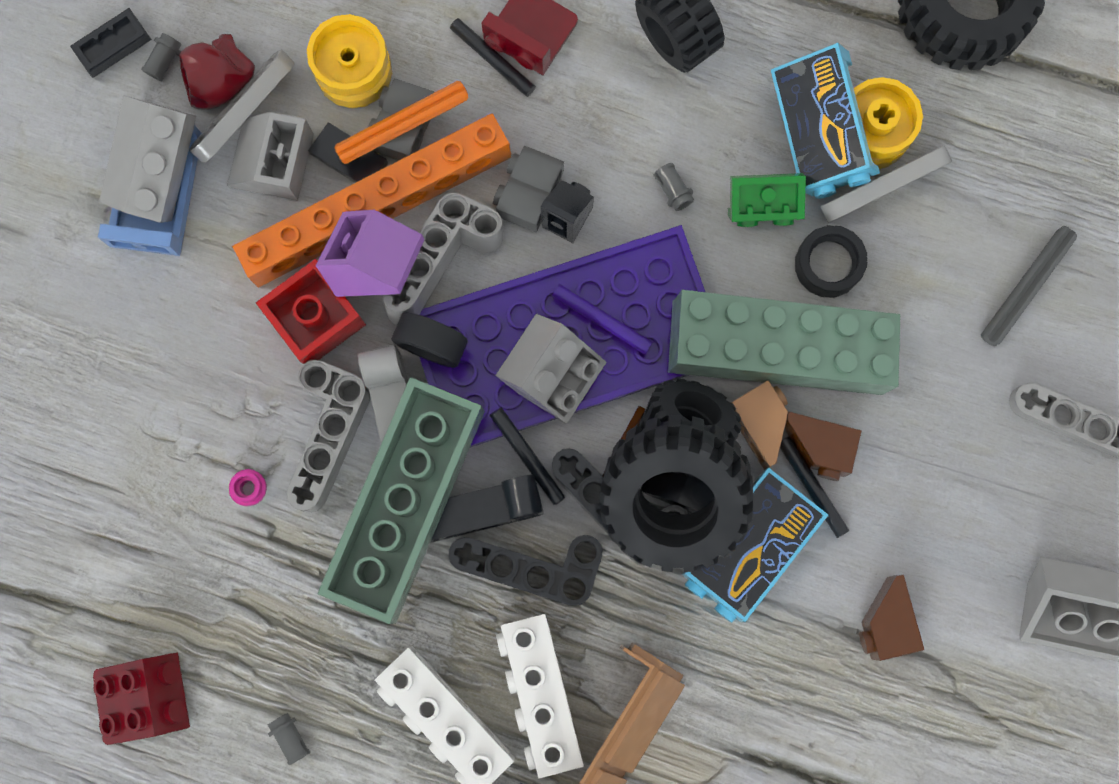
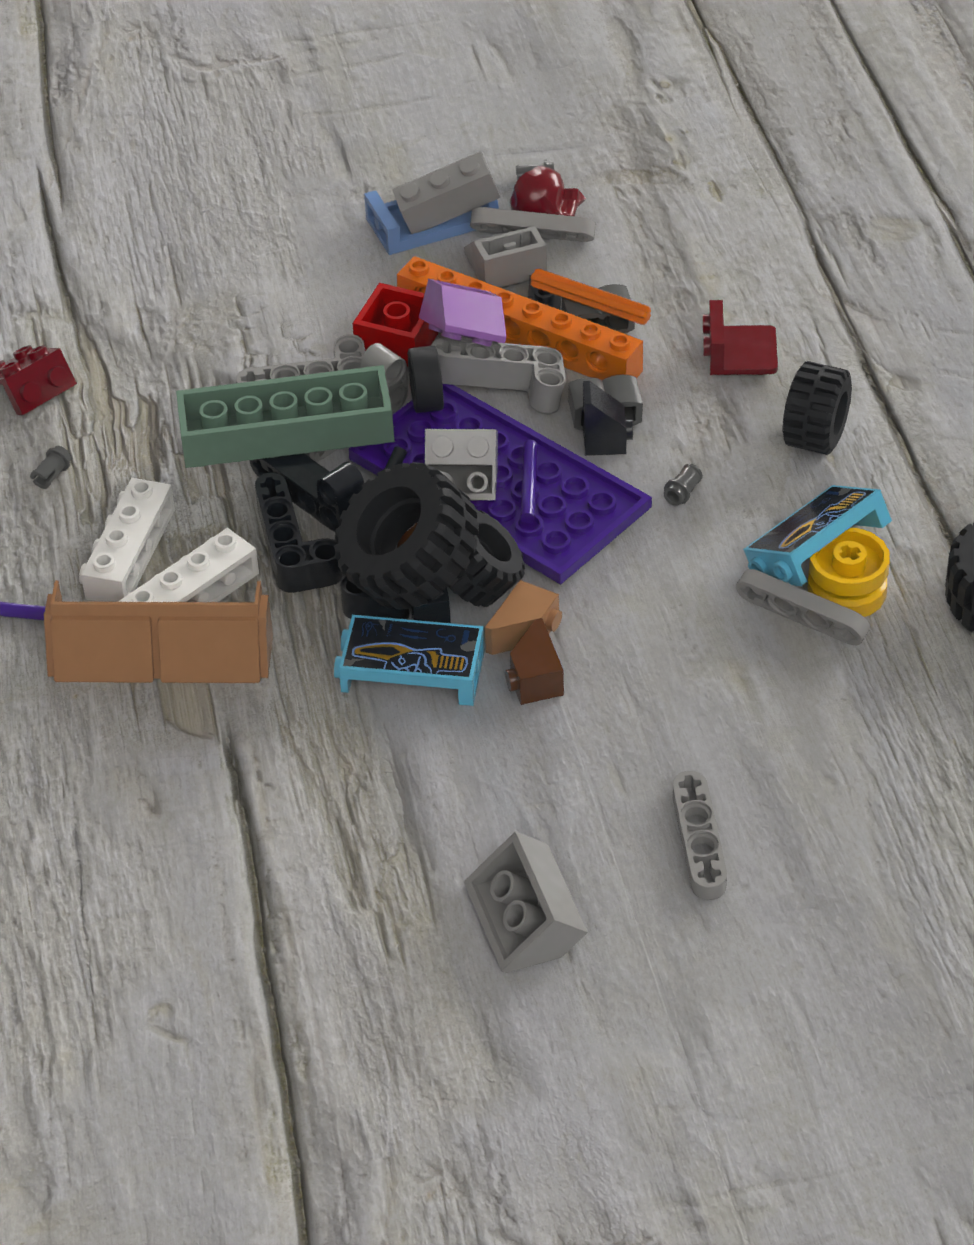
camera: 60 degrees right, 35 degrees down
(110, 42) = (523, 145): black plate -> none
(236, 487) = (233, 360): dark pink plate -> none
(349, 60) = (618, 254): yellow wheel -> none
(492, 57) = (696, 348): black bar -> none
(767, 198) = (717, 529): green bracket -> none
(784, 343) = (600, 591): sand green brick -> none
(813, 486) = (487, 693): black bar -> none
(843, 237) = (704, 624): black tyre -> none
(891, 623) = (412, 775): reddish brown slope -> none
(1029, 286) = (796, 745): dark grey axle -> none

